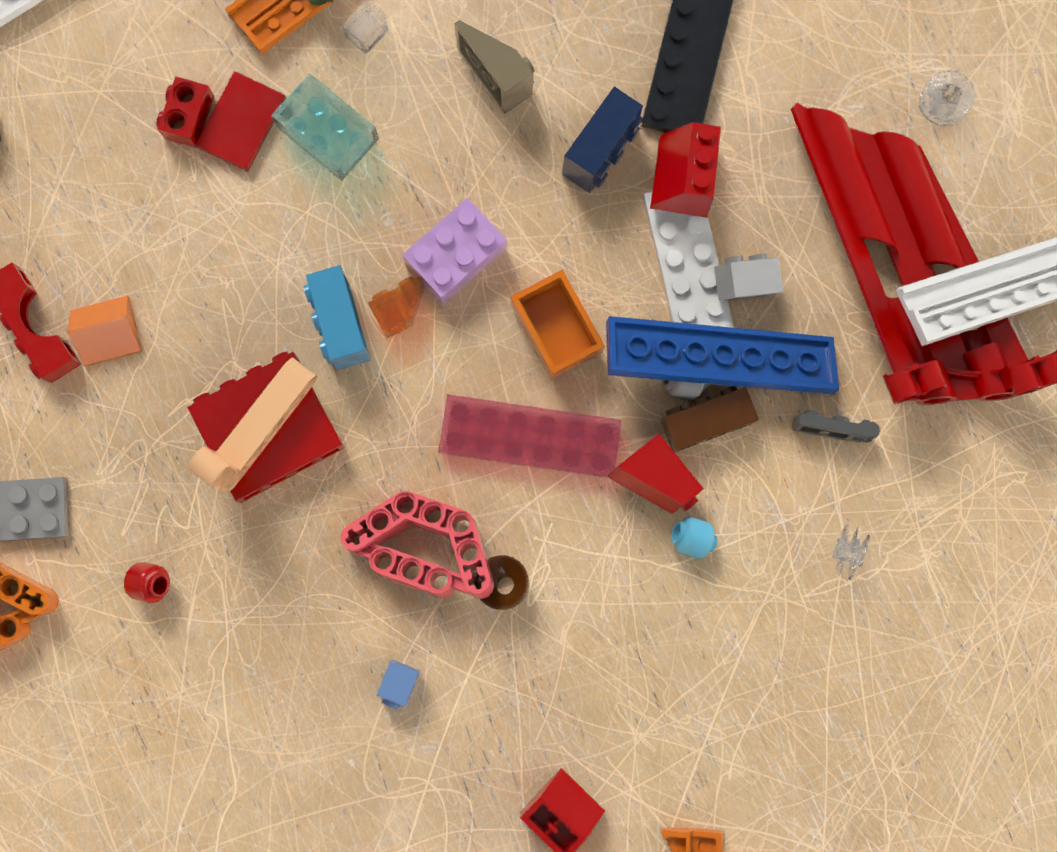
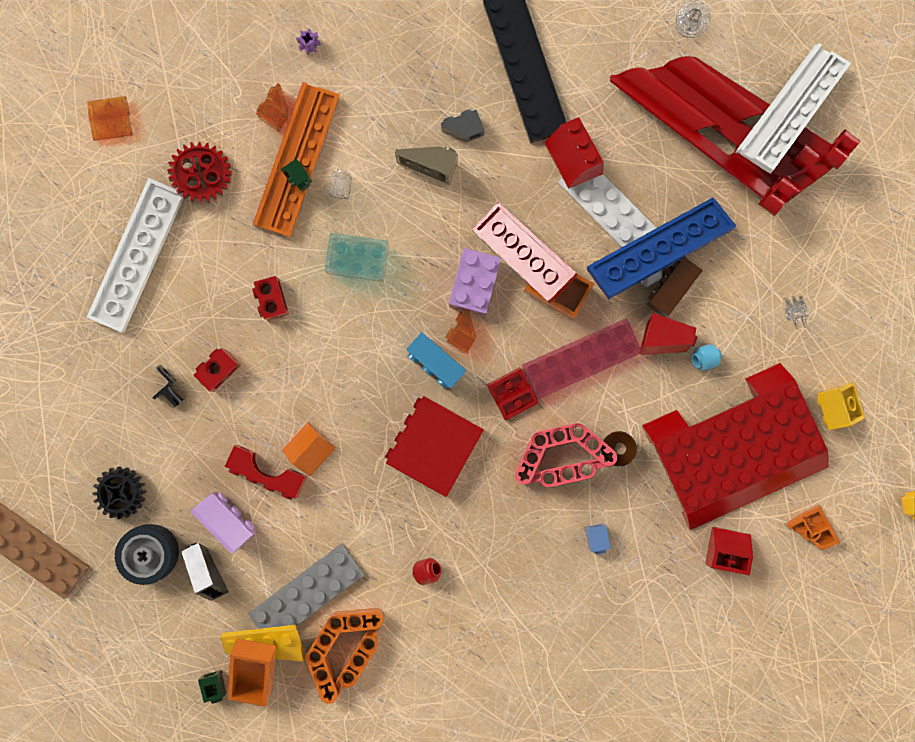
camera: 30 degrees left, 5 degrees up
(73, 162) = (227, 364): none -> red brick
(240, 121) = (304, 283): red tile -> none
(255, 430) = (433, 450): light nougat beam -> none
(411, 425) = (512, 393): none -> red slope
(540, 251) = (524, 252): none -> plate
(568, 52) = (464, 127): none -> dark grey slope
(603, 140) = (518, 166): dark blue brick -> none
(662, 689) = (741, 449): none -> red slope
(748, 278) = (648, 194): light grey brick -> none
(833, 716) = (840, 406): none -> yellow slope
(835, 427) = (745, 247): dark grey hinge -> none

